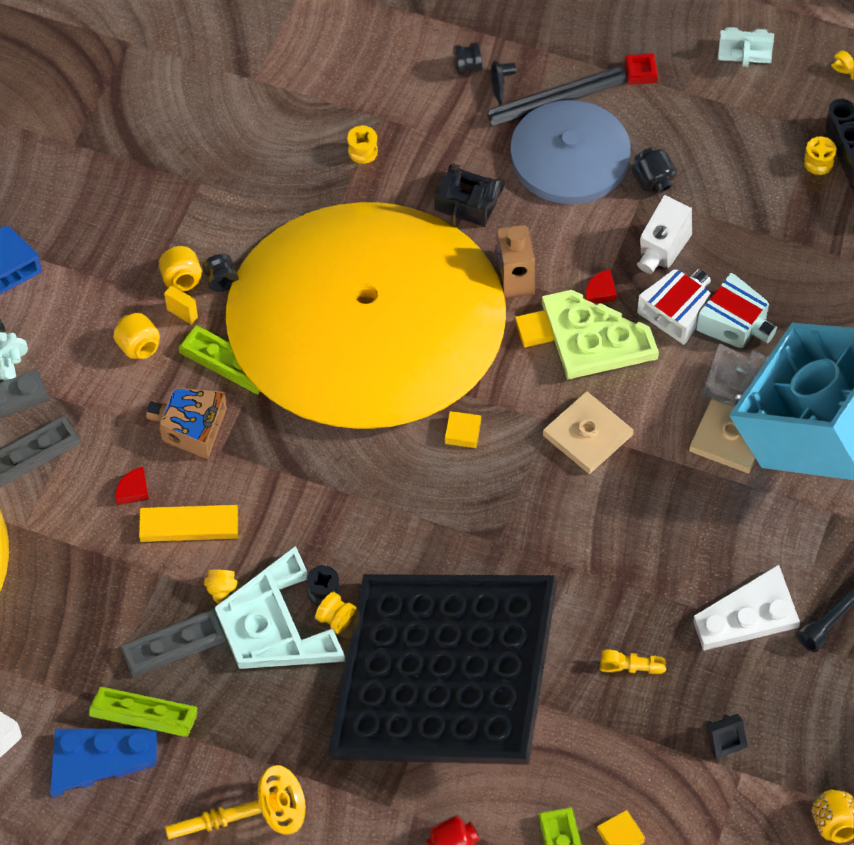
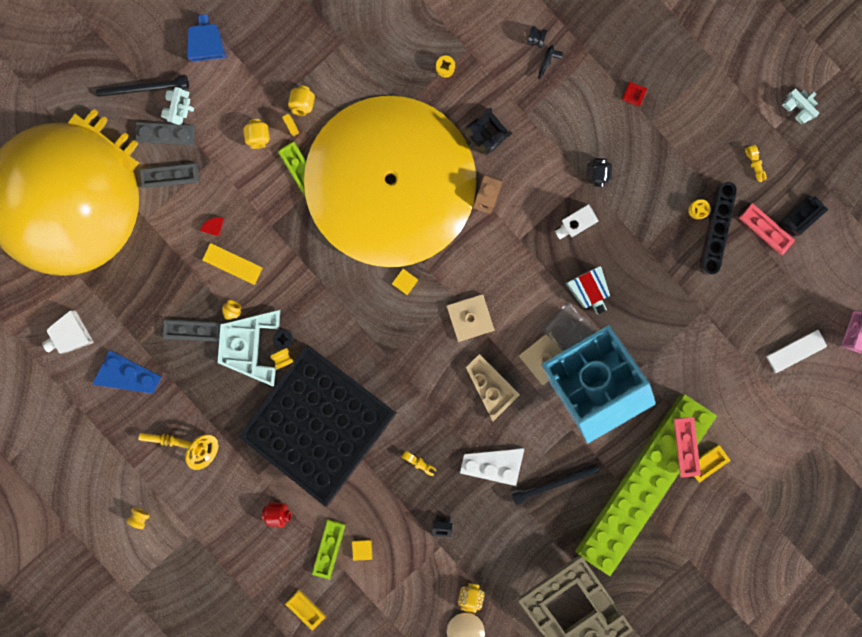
camera: 30 degrees right, 30 degrees up
(143, 711) = (158, 363): lime tile -> none
(190, 419) = (260, 202): torso -> none
(220, 272) = (322, 114): black wheel -> none
(534, 329) = (477, 238): yellow tile -> none
(563, 92) = (574, 88): black axle -> none
(570, 152) = (561, 131): sand blue dish -> none
(595, 336) = (506, 261): yellowish green plate -> none
(601, 288) = (527, 231): red tile -> none
(675, 504) = (491, 386): none -> tan wing
(676, 303) = (563, 265): white torso -> none
(746, 46) = (702, 114): light aqua hips -> none

